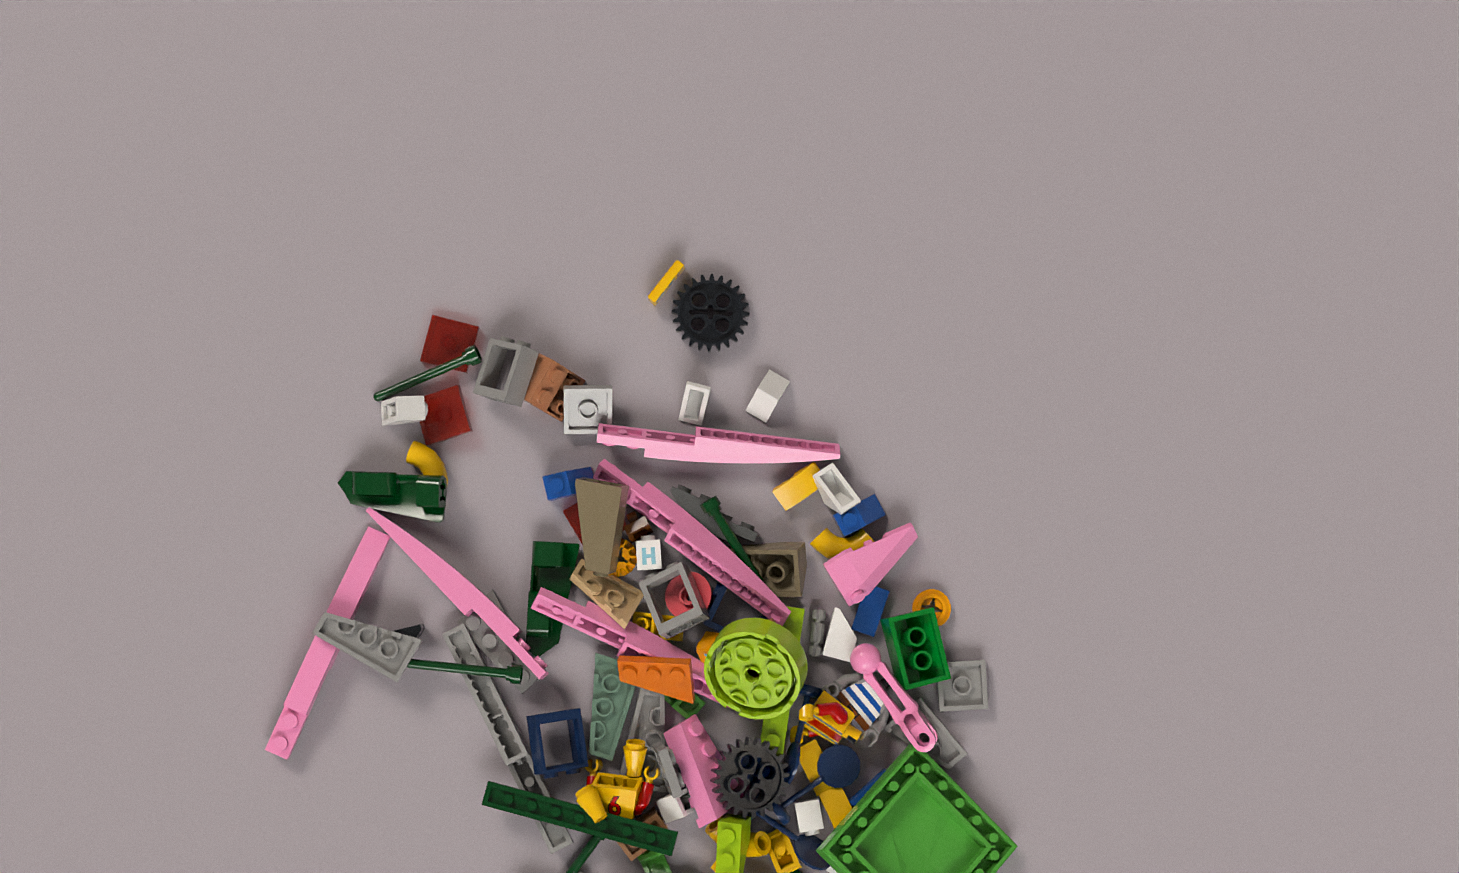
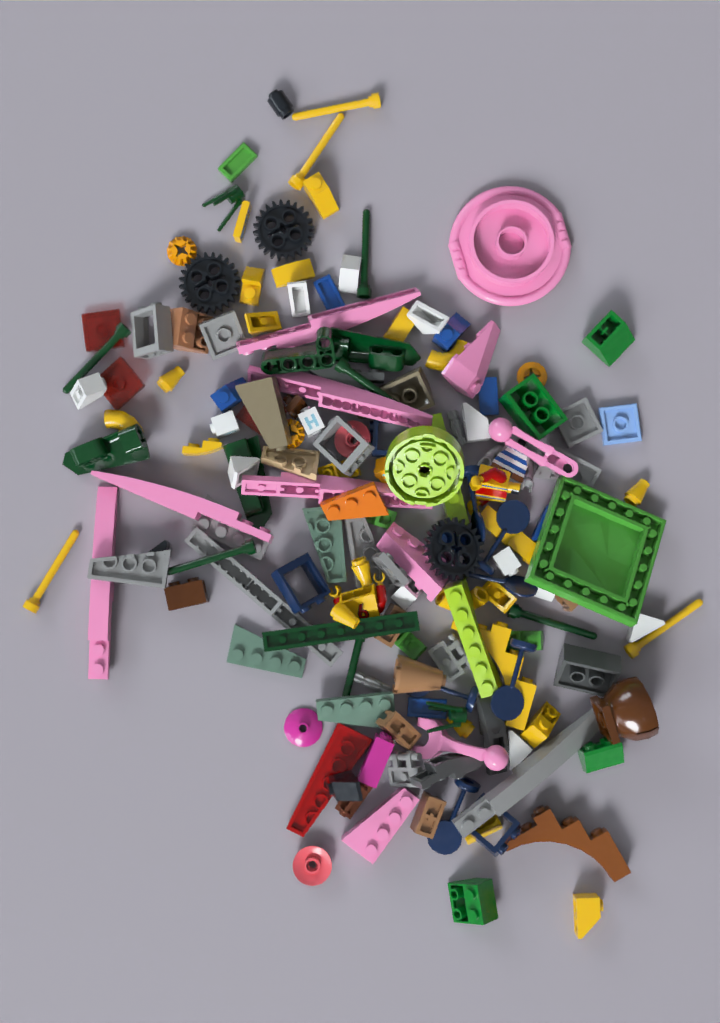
camera: 25 degrees left, 0 degrees up
(237, 633) = (33, 602): none -> yellow piece
(418, 697) = (186, 594): none -> reddish brown brick
(464, 794) = (248, 651): none -> sand green wing
(504, 435) = (170, 379): none -> yellow cone
(517, 534) = (208, 447): none -> yellow slope
(543, 575) = (241, 466): none -> white slope
(545, 515) = (224, 424): none -> white brick
(578, 298) = (181, 259): none -> light orange gear
(598, 317) = (203, 267): none -> black gear
(640, 413) = (262, 322): none -> yellow slope
(646, 362) = (252, 285): none -> yellow slope
(667, 477) = (270, 358): none -> dark green beam
(668, 245) = (233, 195): none -> dark green plant
(690, 207) = (237, 162): none -> bright green tile
(700, 368) = (293, 272): none -> yellow slope
(733, 409) = (328, 292): none -> blue tile
(753, 258) = (296, 180): none -> yellow piece
(760, 504) = (374, 350): none -> dark green panel
(769, 159) = (280, 104): none -> black brick
(771, 289) = (320, 195): none -> yellow slope
(777, 421) = (364, 290): none -> dark green piece
(879, 200) = (371, 101): none -> yellow piece
(971, 441) = (509, 246): none -> bright pink piece
(996, 799) = (636, 494): none -> yellow cone
(1012, 708) = (620, 424): none -> light blue tile
(1041, 602) = (609, 338): none -> green slope

